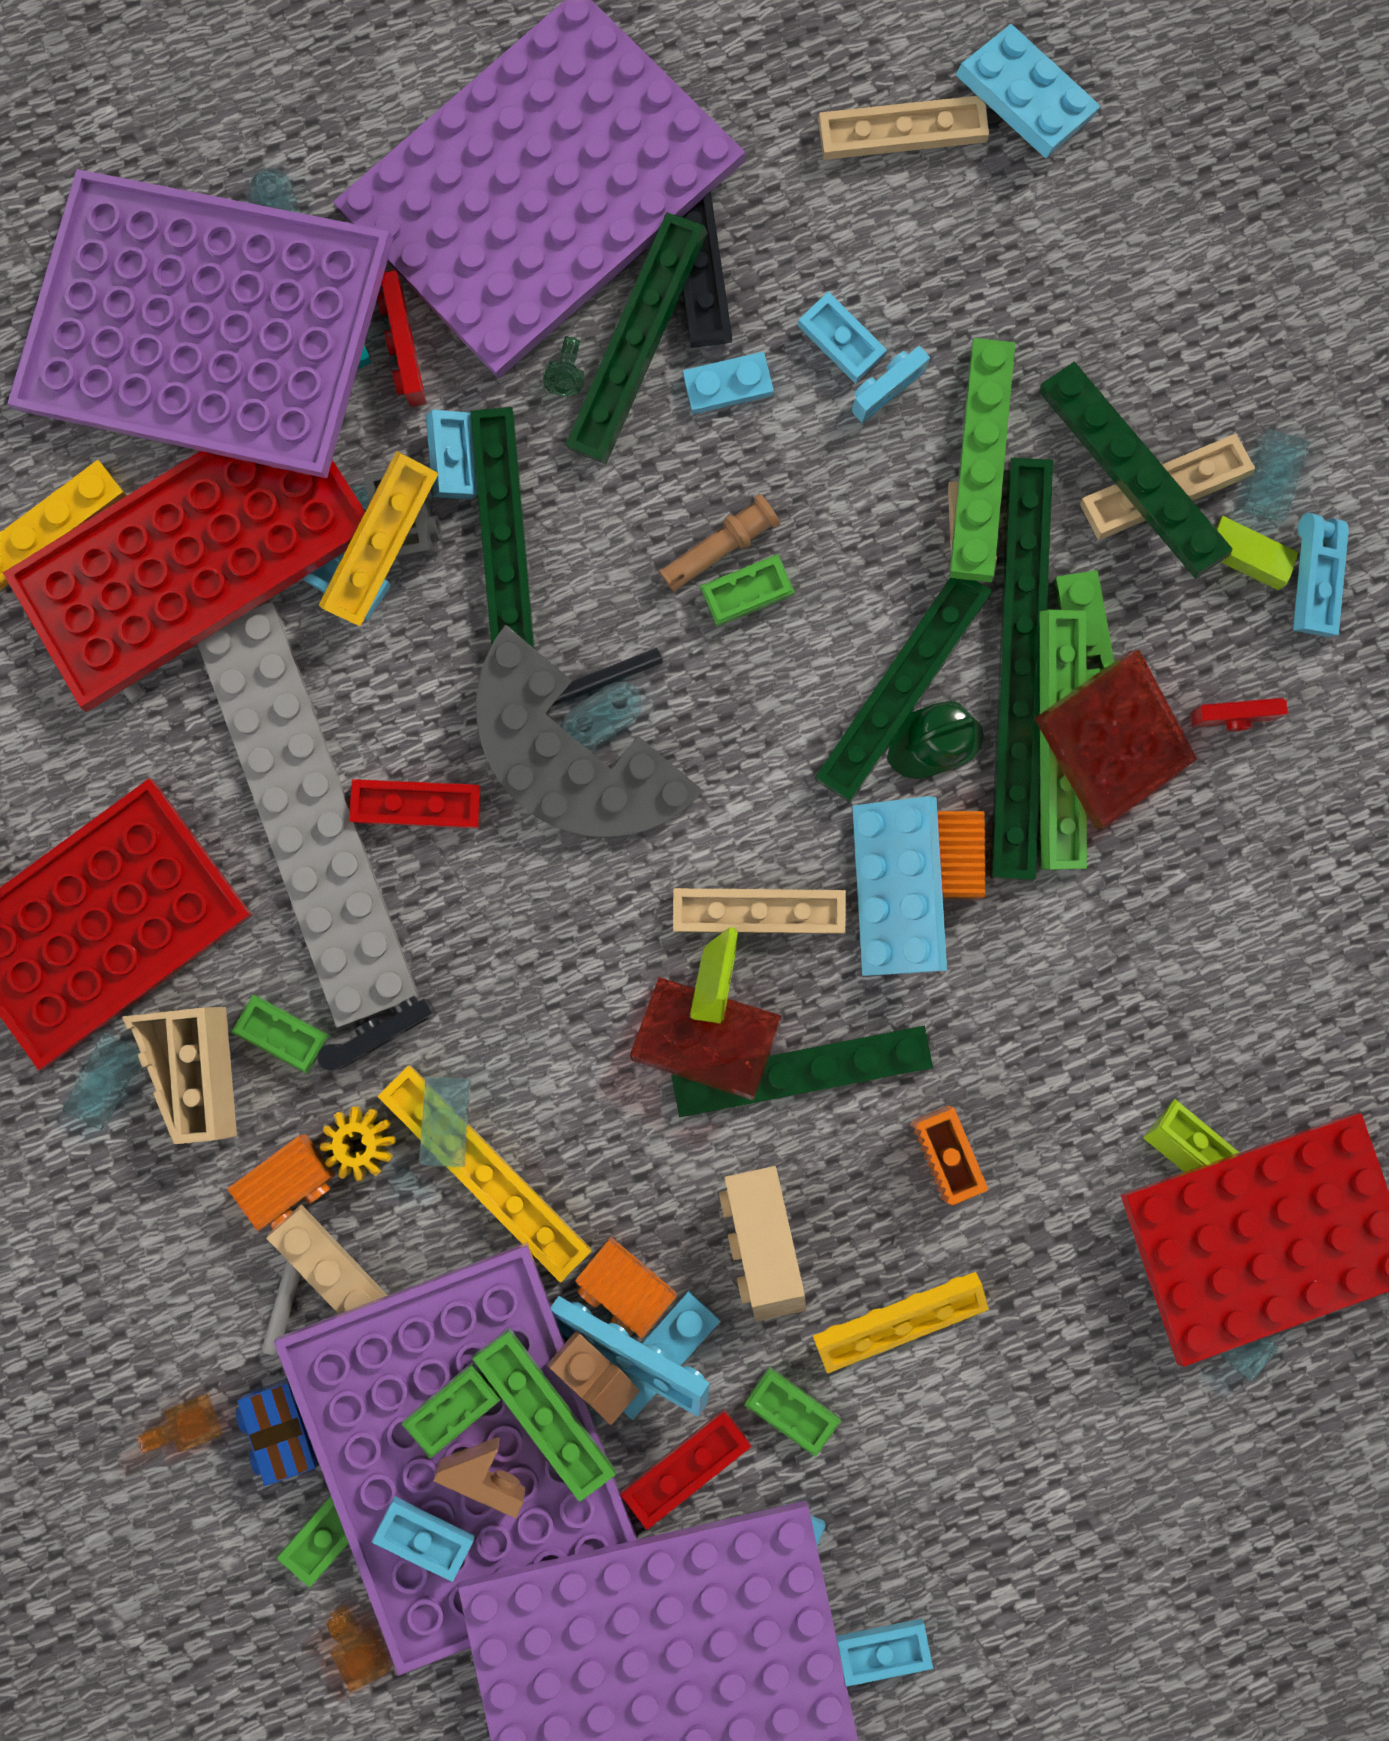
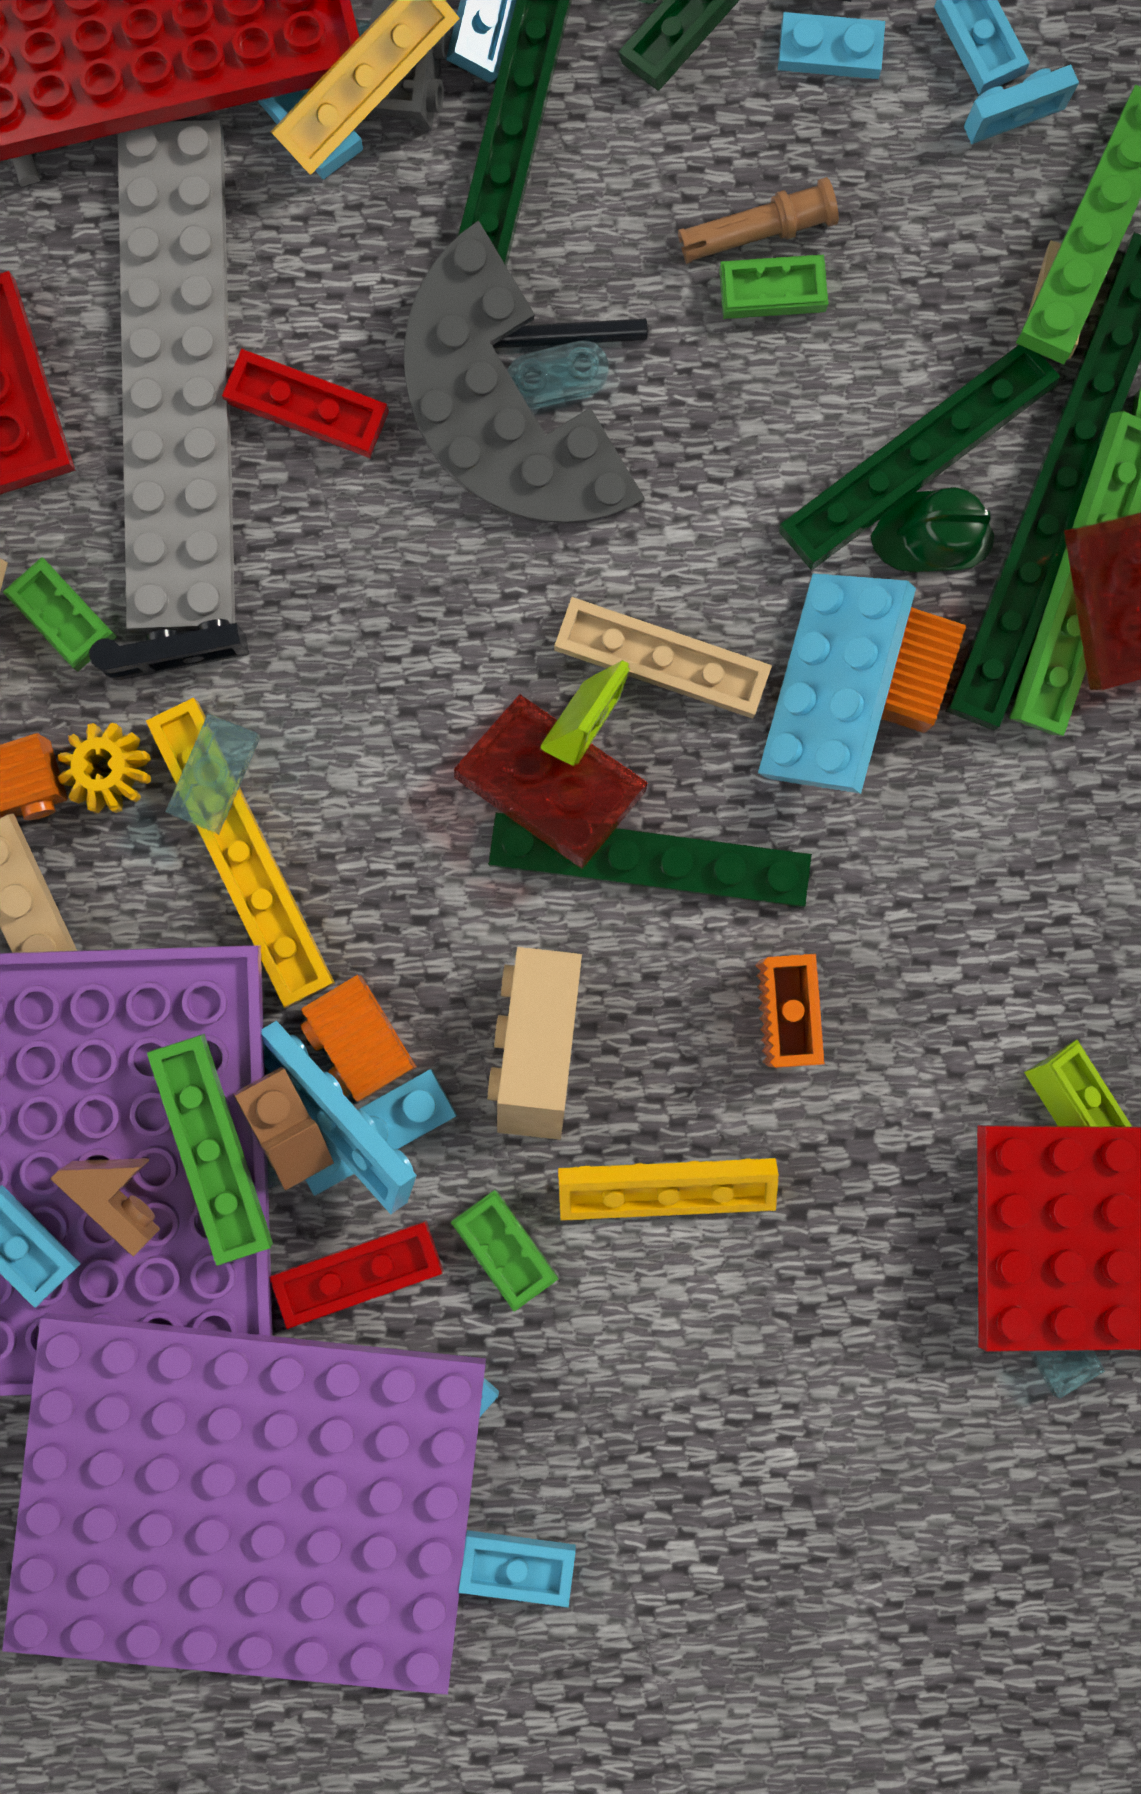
camera: 15 degrees right, 0 degrees up
(451, 1410) = (102, 1106): bright green plate -> none

